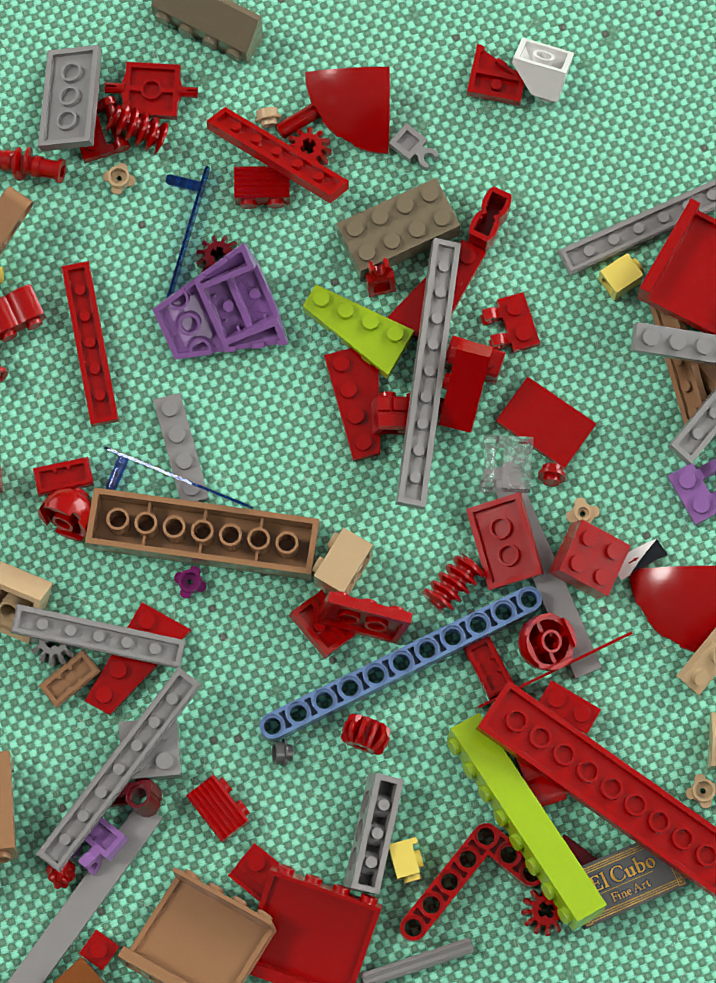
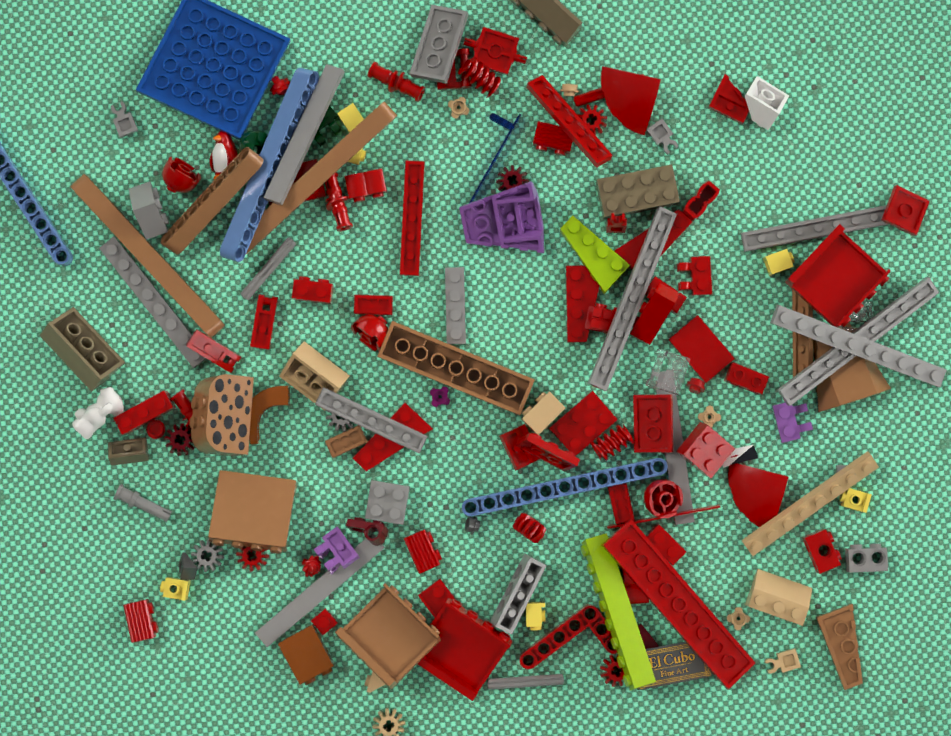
camera: 10 degrees right, 10 degrees up
(119, 769) = (364, 512): light grey tile -> none
(122, 461) = (414, 304): clear blue piece -> none
(405, 567) = (583, 423): none -> red plate
(620, 446) = (746, 378): none -> red brick

